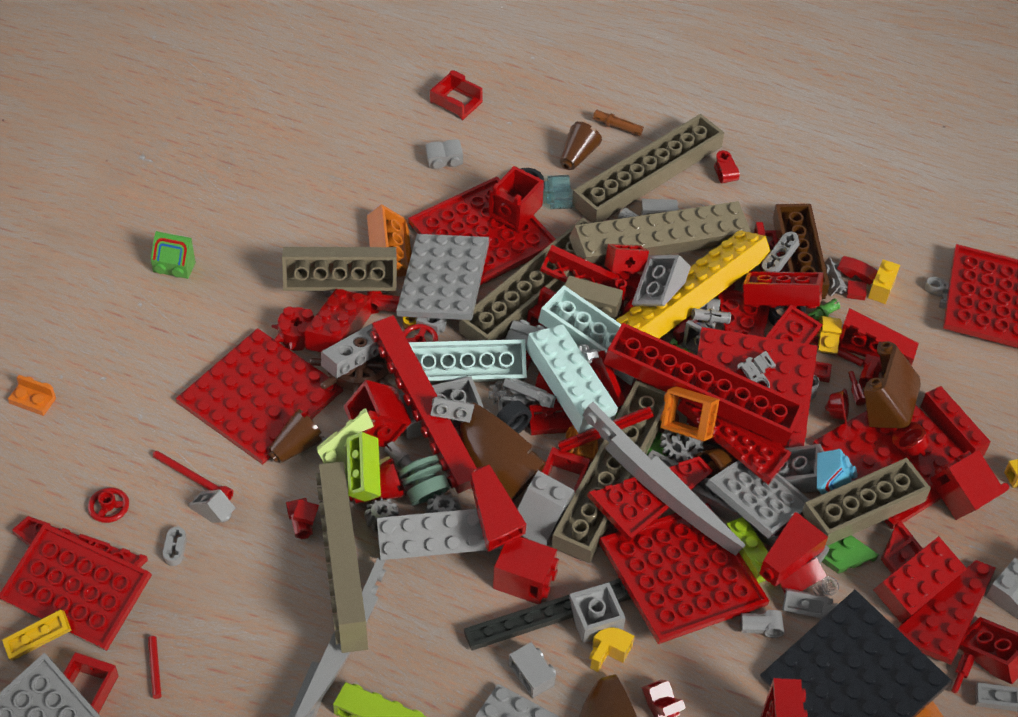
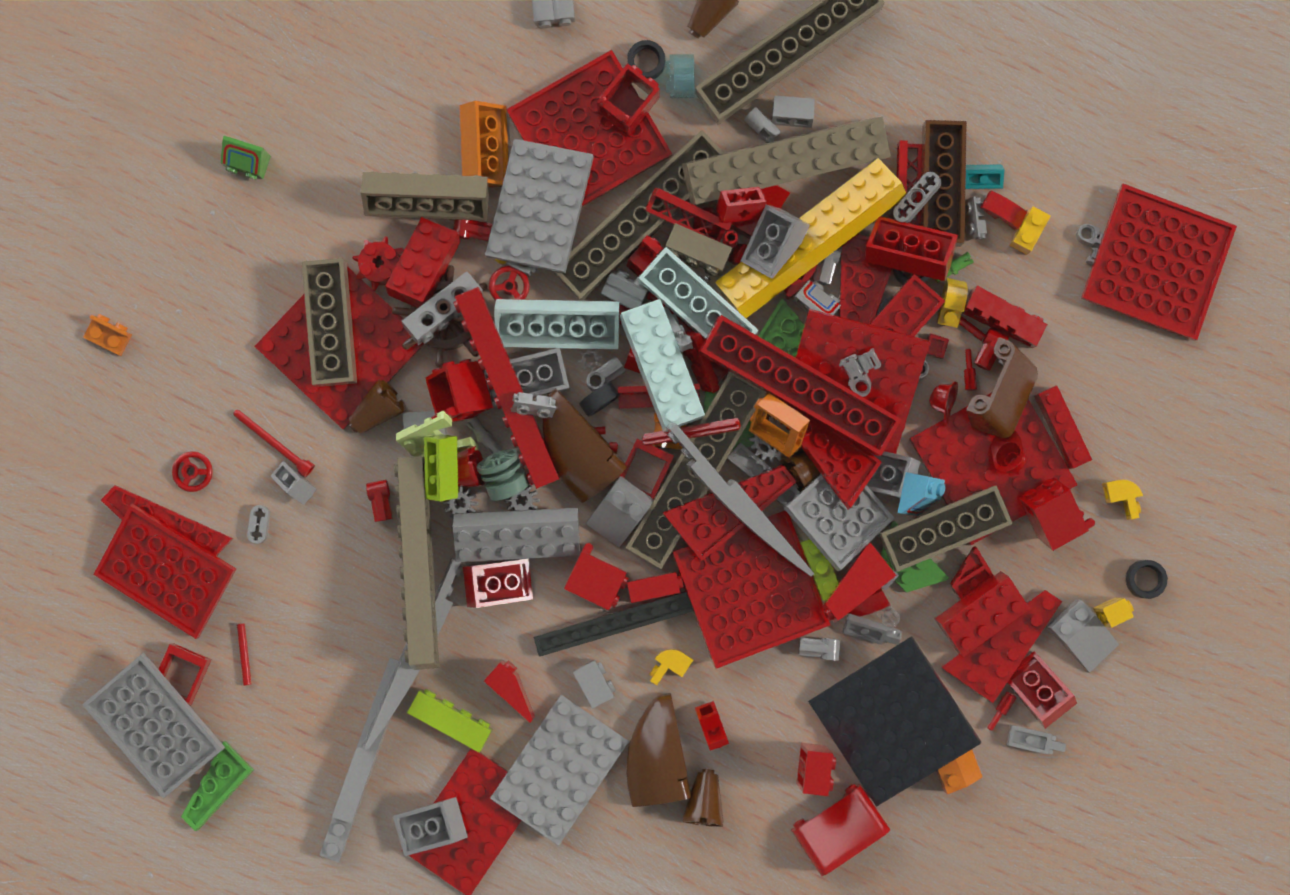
camera: 10 degrees right, 35 degrees up
(36, 635) = (133, 620): yellow plate -> none
(250, 367) = (329, 322): none -> dark tan brick
(305, 512) = (384, 503): red tile -> none
(422, 582) = (497, 583): none -> red slope
(441, 672) = (508, 685): none -> red slope
(496, 510) = (568, 532): red slope -> none
(532, 392) = (618, 371): light grey hinge -> none
(584, 570) = (654, 587): none -> red window
(596, 610) = (660, 630): light grey slope -> none
(711, 315) = (826, 278): light grey pin -> none
(726, 167) = (880, 51): red piece -> none
(836, 250) = (984, 176): none -> teal slope
(856, 290) = (997, 236): red tile -> none

